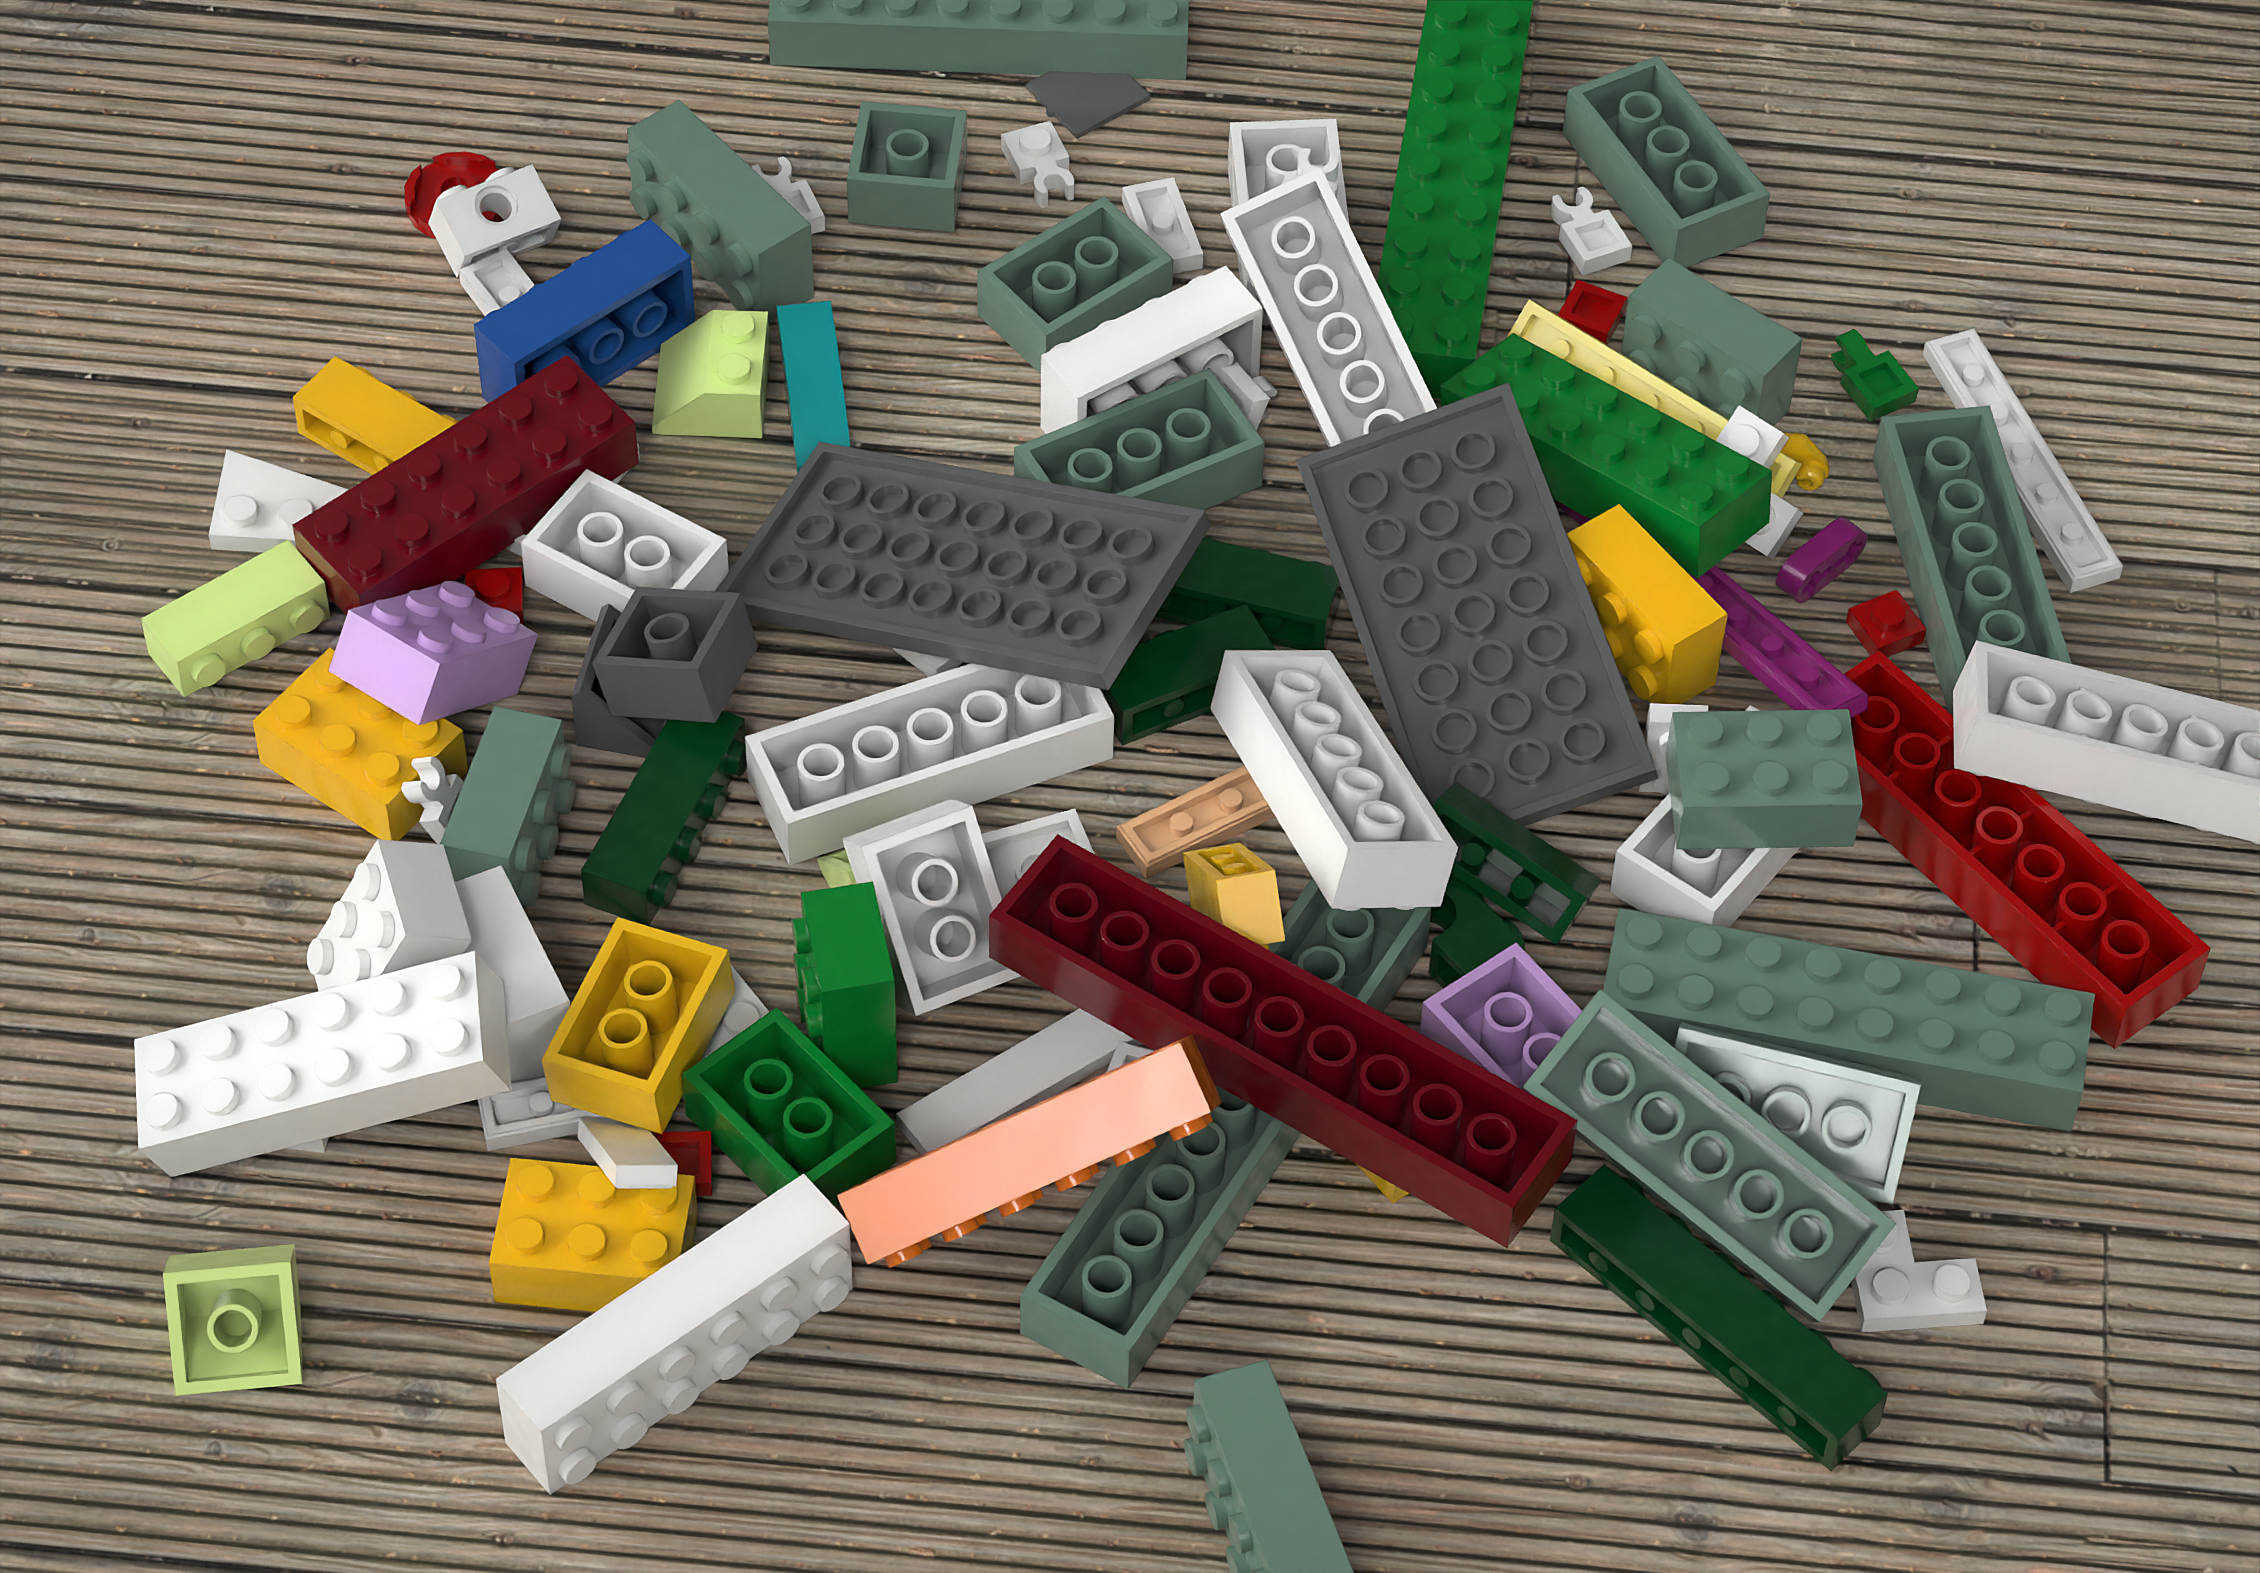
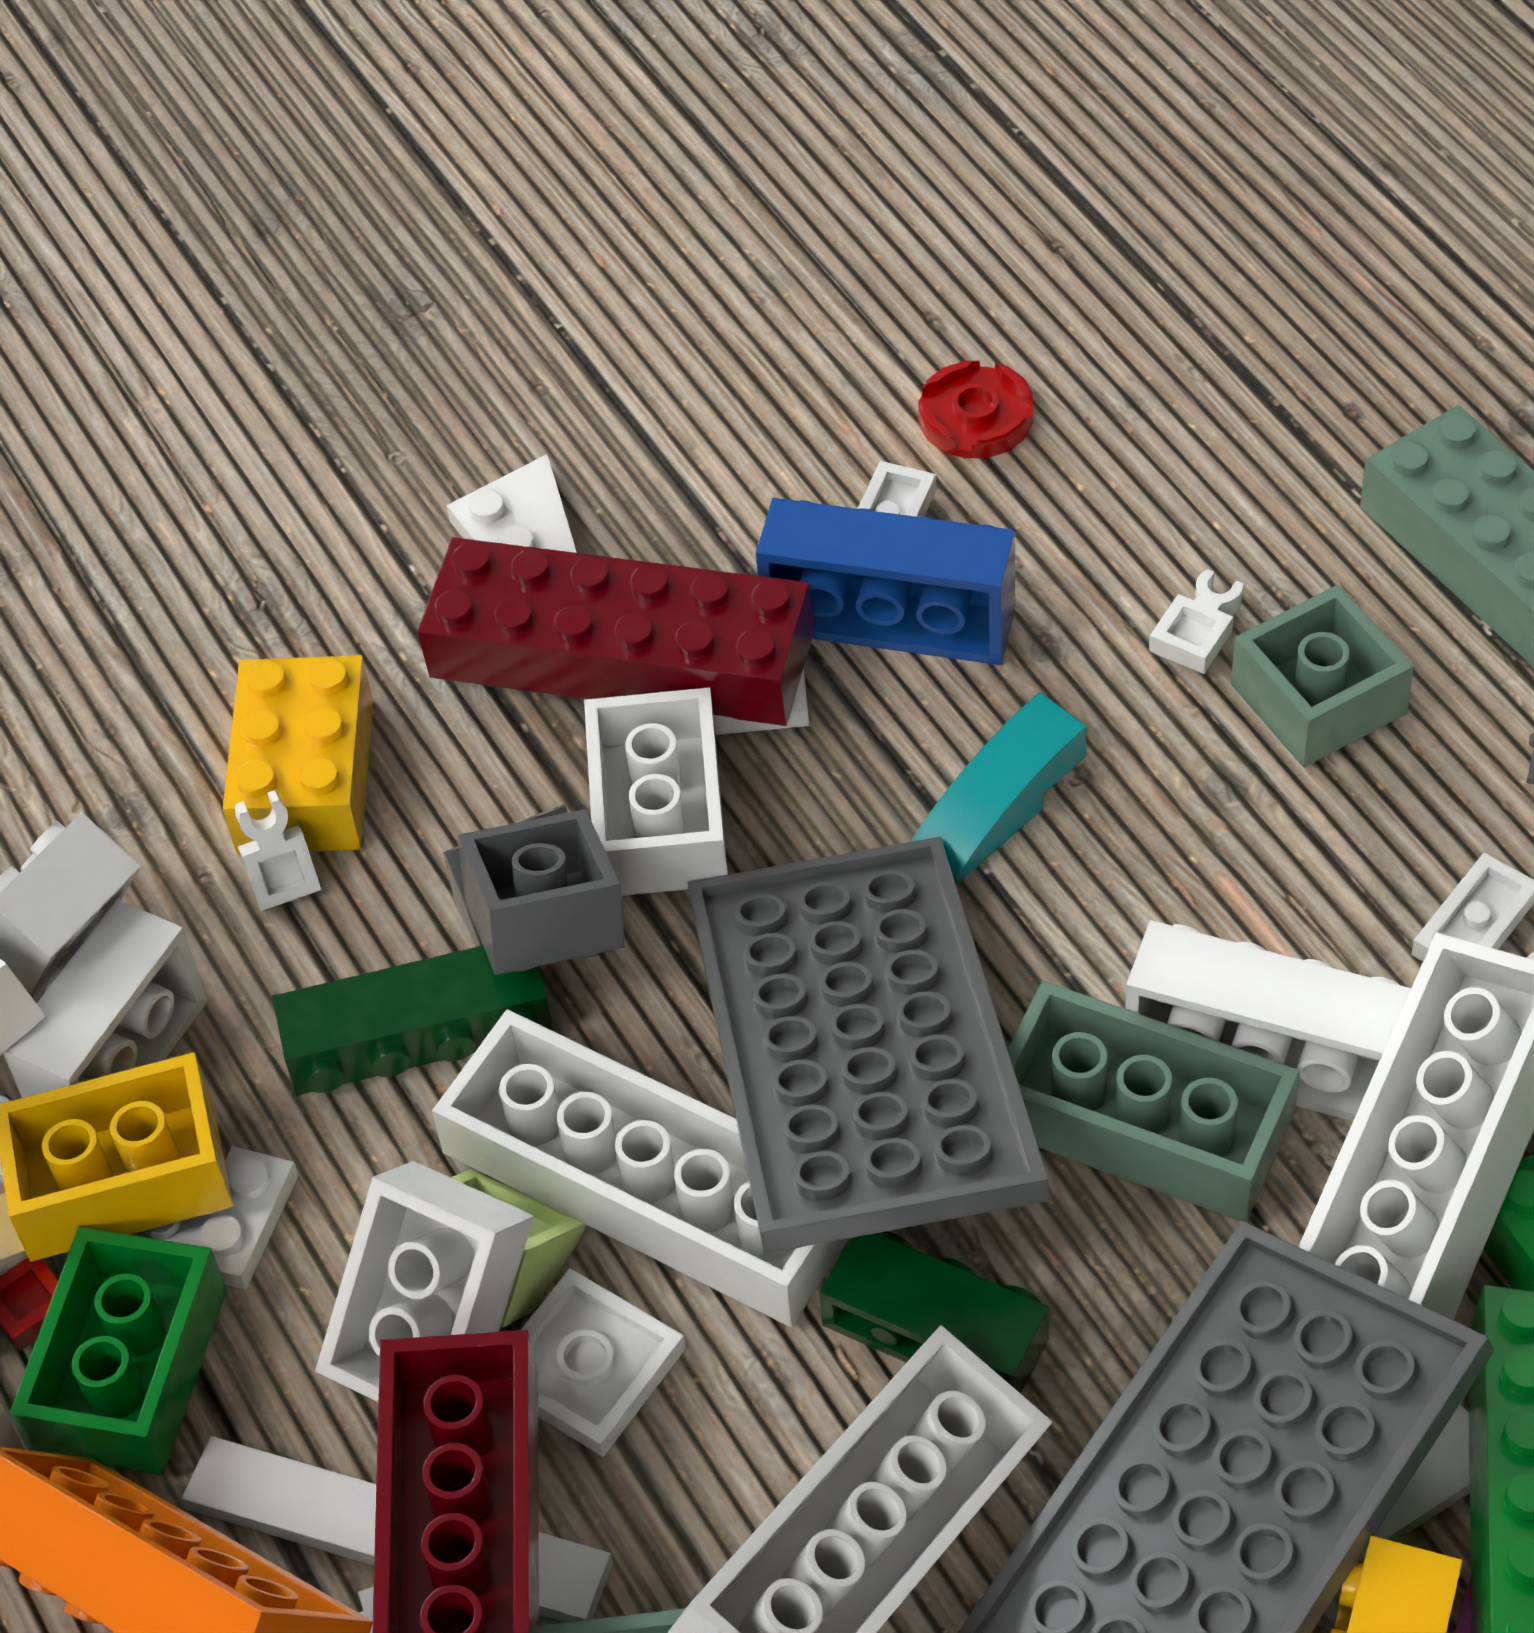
camera: 60 degrees right, 0 degrees up
(236, 618) = (355, 578): yellowish green brick -> none
(363, 417) = (658, 506): yellow brick -> none
(433, 652) = (410, 725): lavender brick -> none
(499, 588) = (555, 734): red plate -> none
(512, 194) = (975, 467): white brick -> none
(512, 801) = (288, 900): sand green brick -> none
(714, 377) = (942, 716): yellowish green slope -> none
(719, 211) = (1109, 582): sand green brick -> none
(847, 982) = (265, 1285): green brick -> none
(1040, 157) = (1460, 767): white plate -> none
(1071, 280) = (1315, 891): sand green brick -> none
(1194, 822) = (751, 1443): light nougat tile -> none
(1236, 891) = (641, 1546): yellow brick -> none
(1247, 392) = (1317, 1130): white tile -> none
(1287, 595) = (1073, 1267): dark green brick -> none

